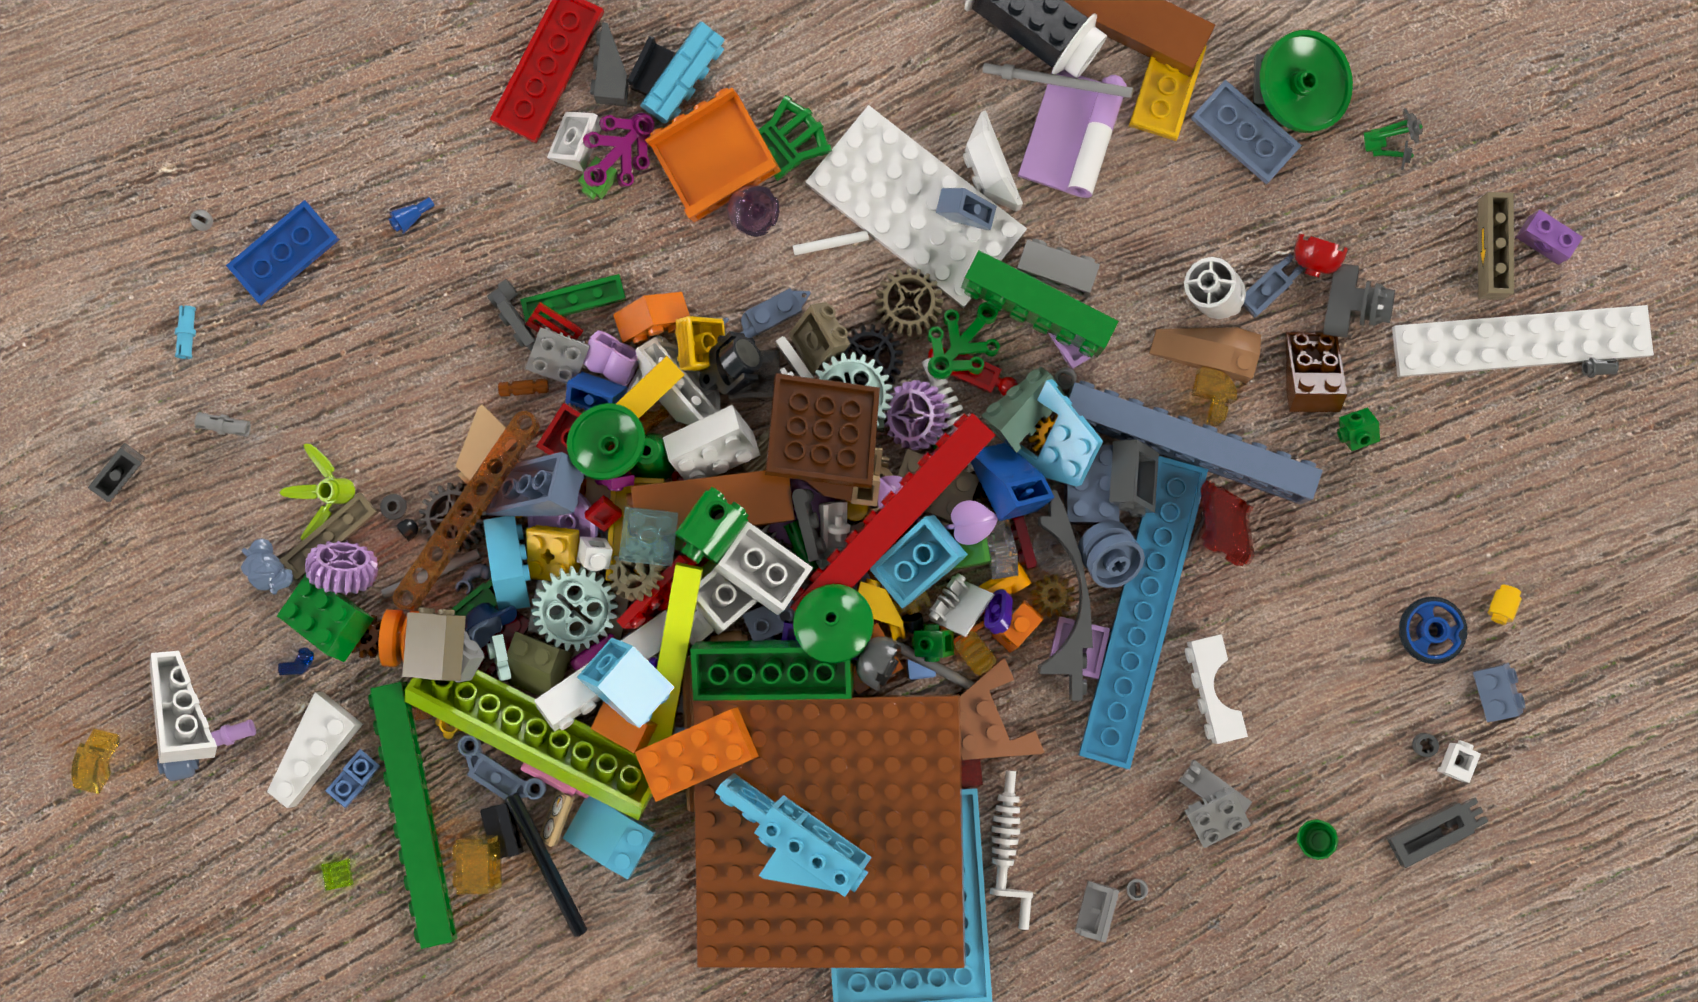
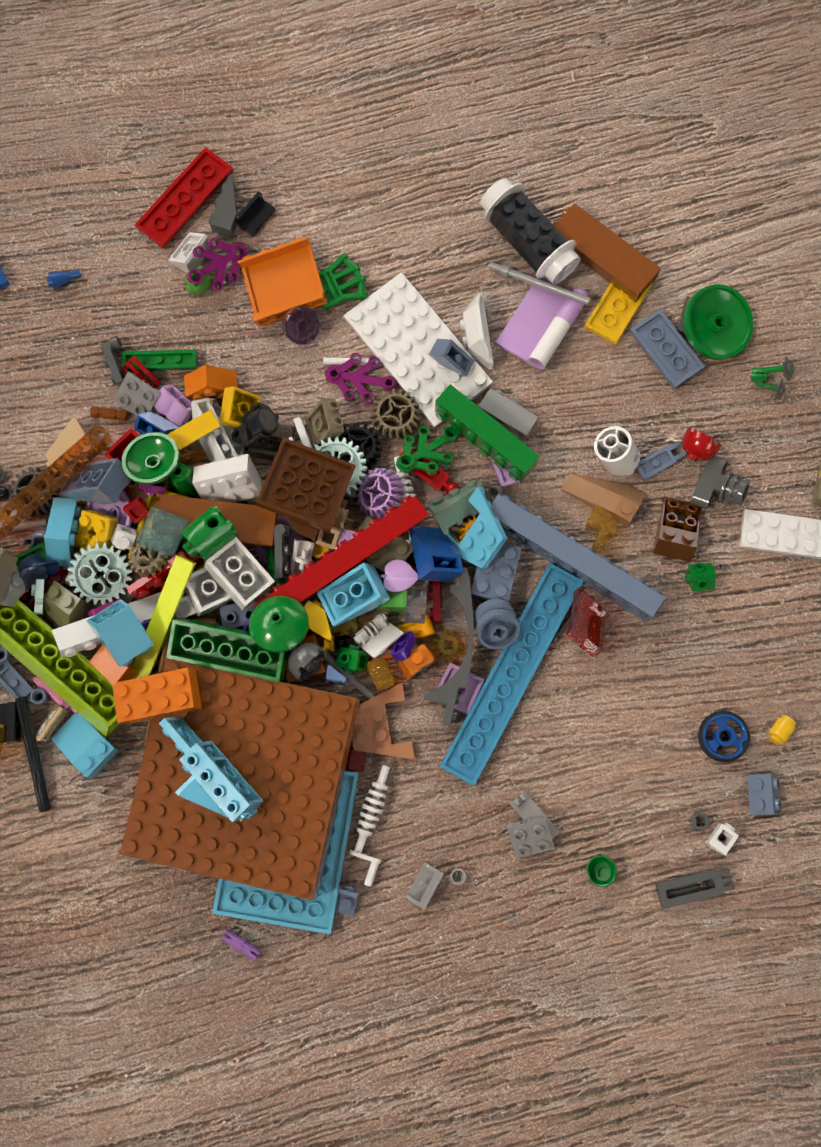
camera: 20 degrees right, 5 degrees down
(682, 73) = (276, 221): medium azure brick -> none
(772, 312) = (297, 400): sand blue plate -> none
(845, 264) = (357, 378): none -> magenta plant
(1002, 954) = (347, 900): none -> sand blue bracket
(1134, 477) = (522, 557): dark grey window -> none
(1207, 657) = (552, 767): white arch -> none

